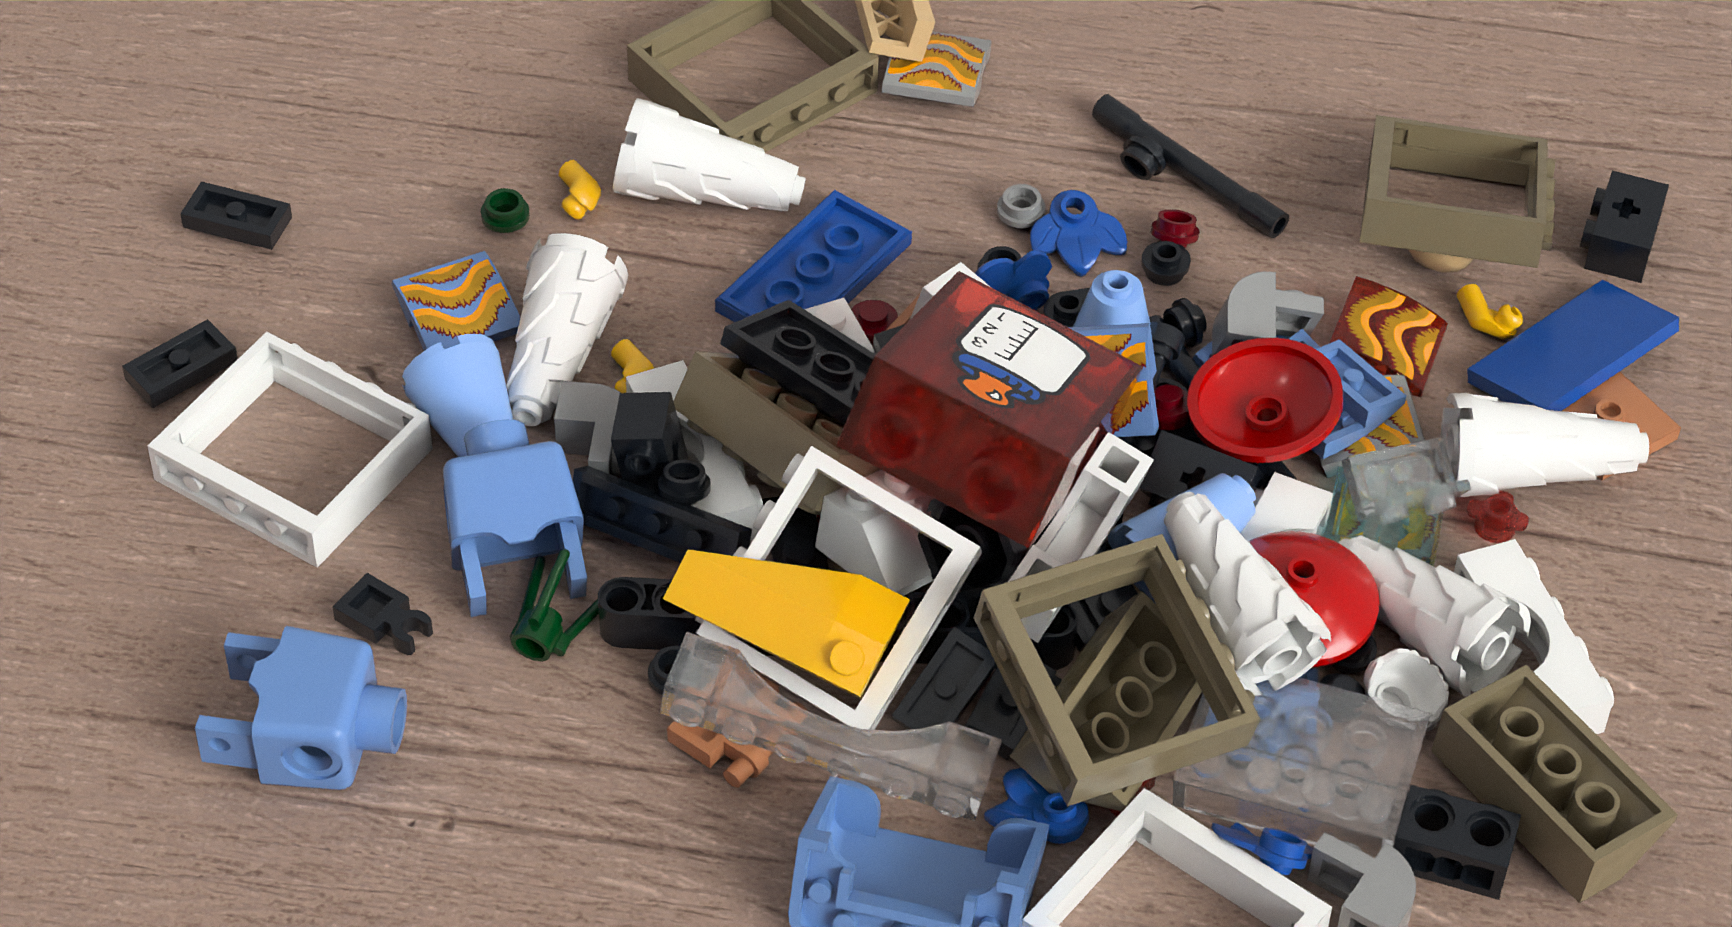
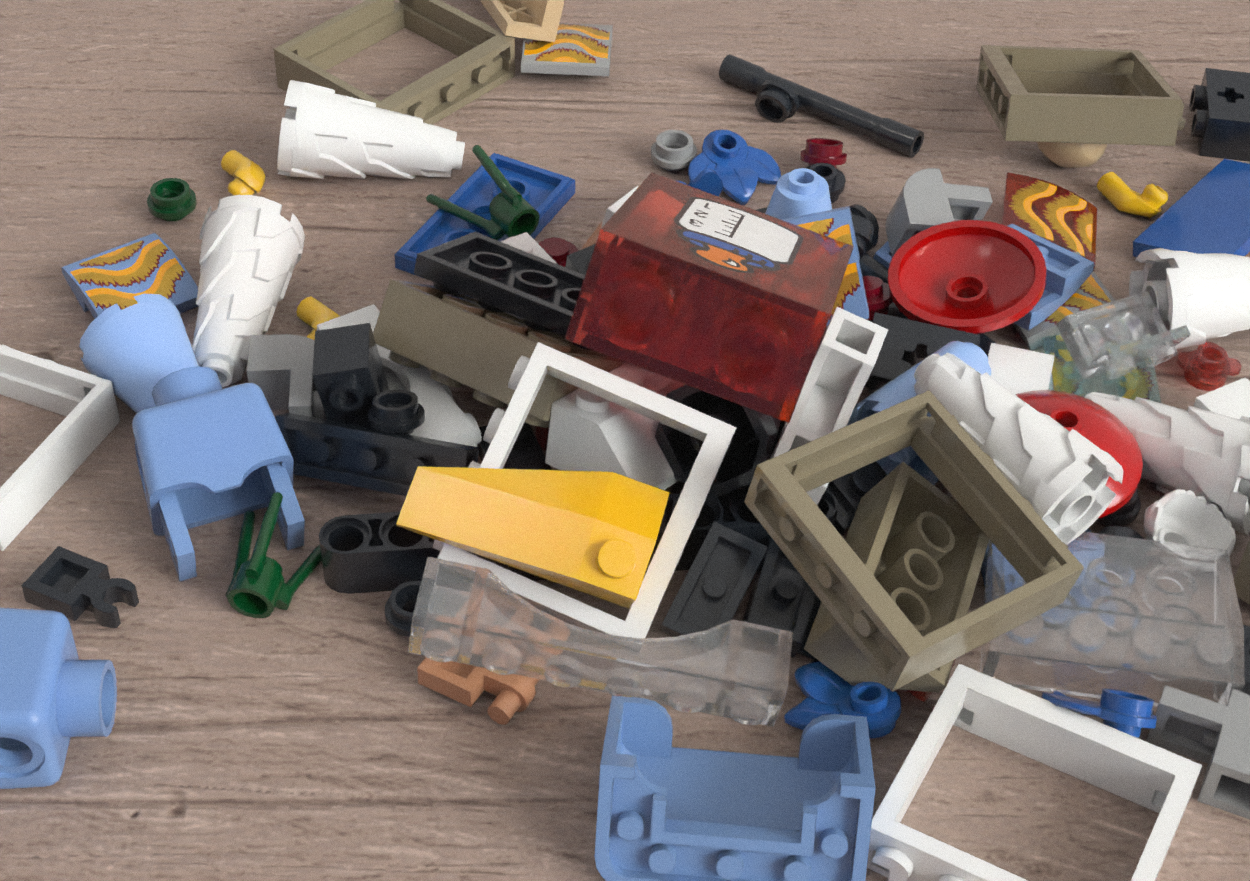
camera: 10 degrees left, 5 degrees down
(834, 267) = (508, 210): none -> dark green plant

